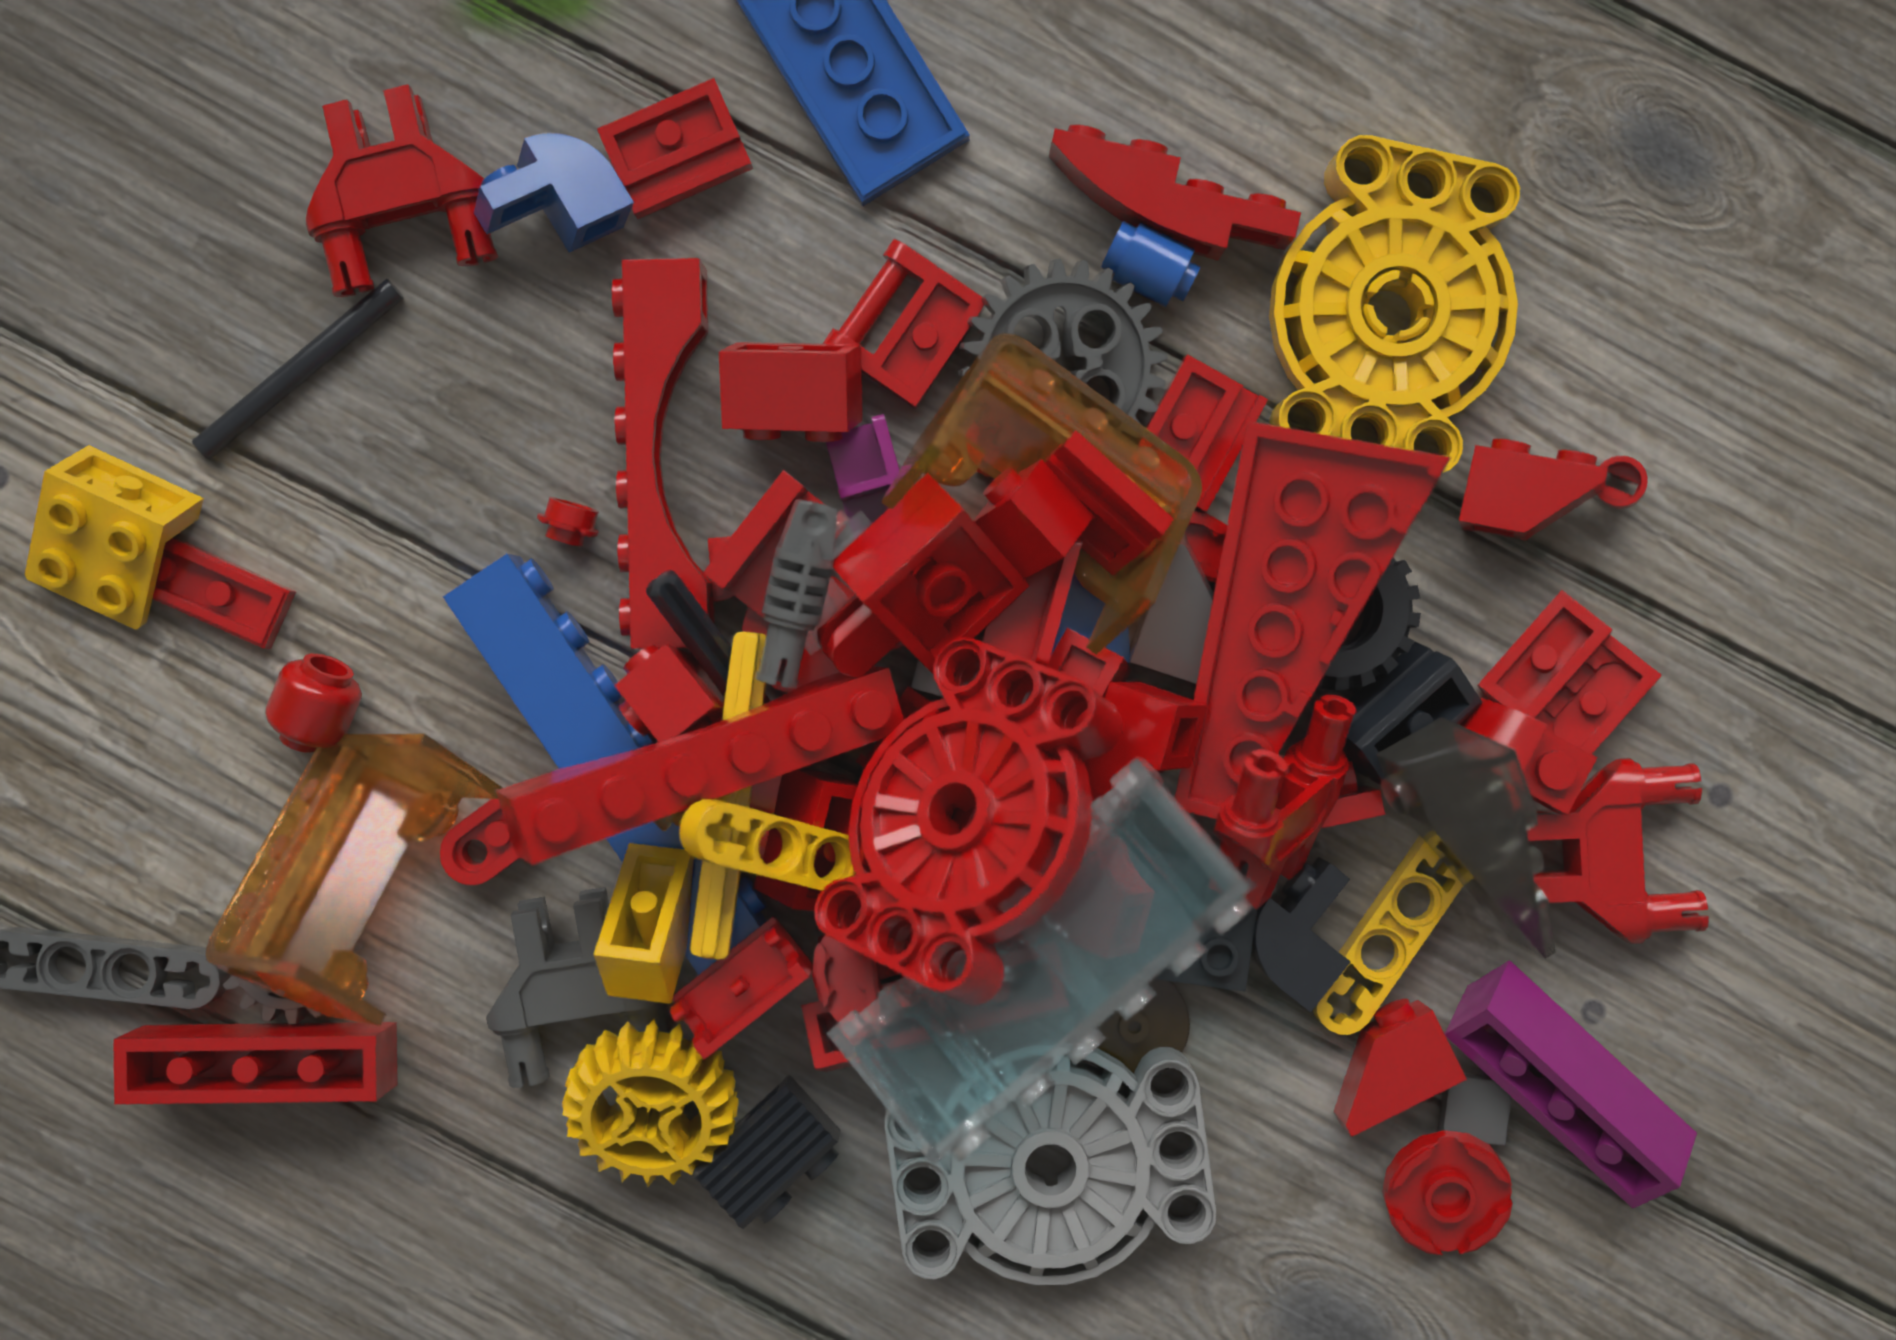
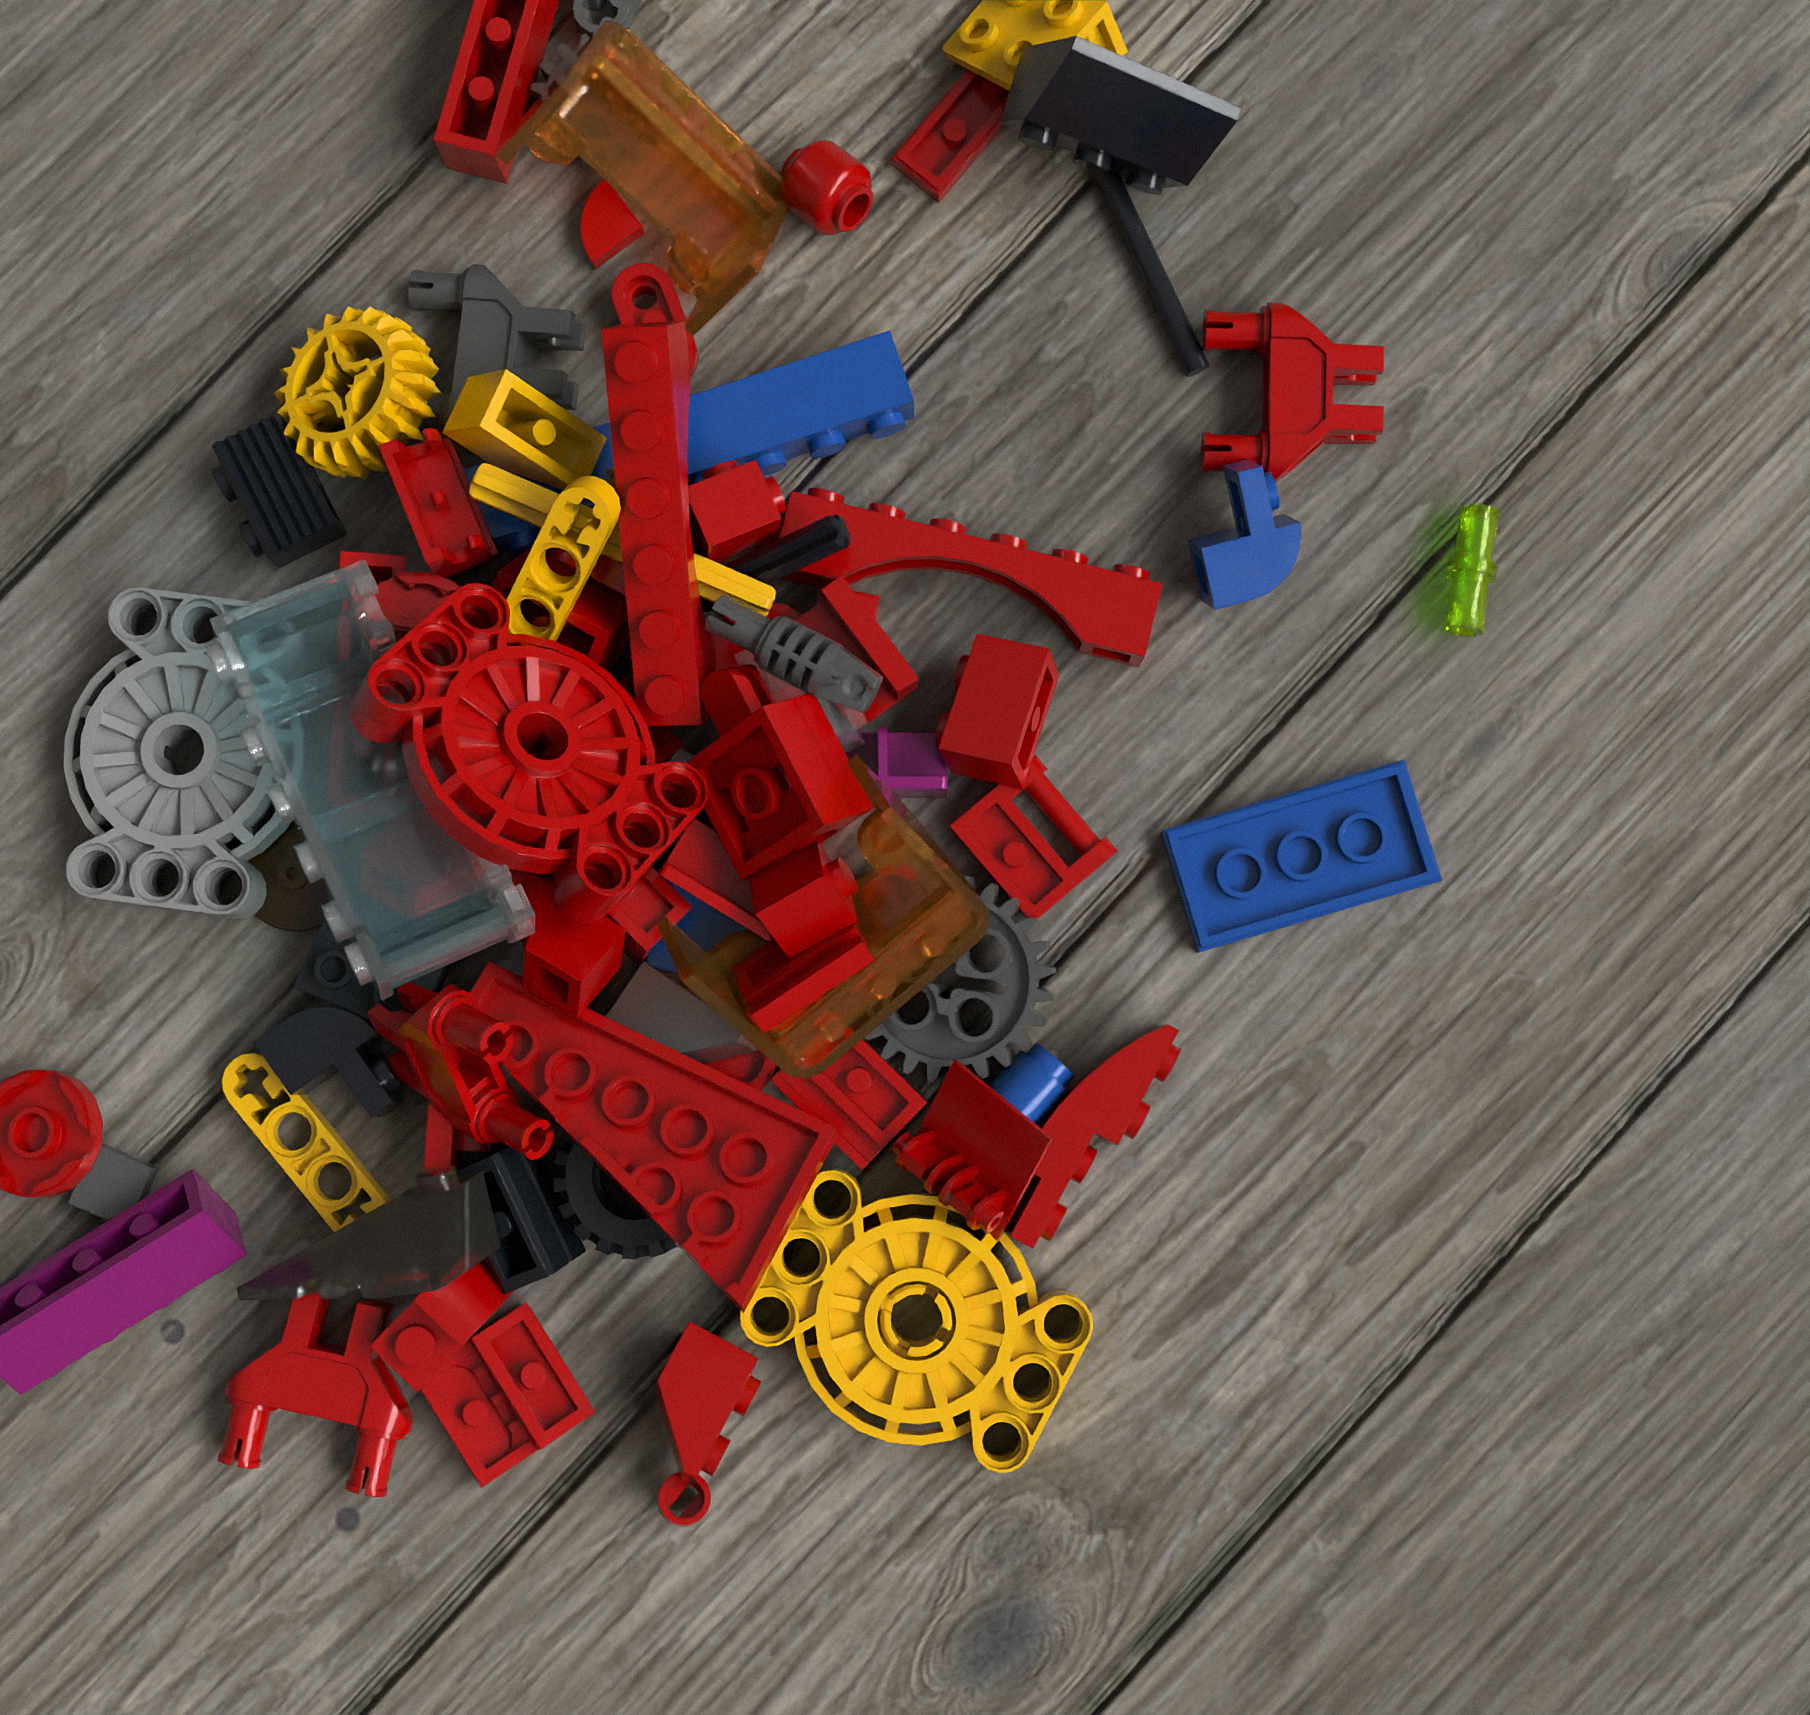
camera: 100 degrees right, 5 degrees down
(160, 429) = (1115, 114): none -> black slope
(410, 910) = (607, 225): none -> red tile
(569, 521) = (932, 470): red plate -> none
(675, 148) = (1260, 666): red plate -> none
(1223, 293) = (974, 1151): none -> red hinge
(1395, 1066) = (177, 1115): red slope -> none

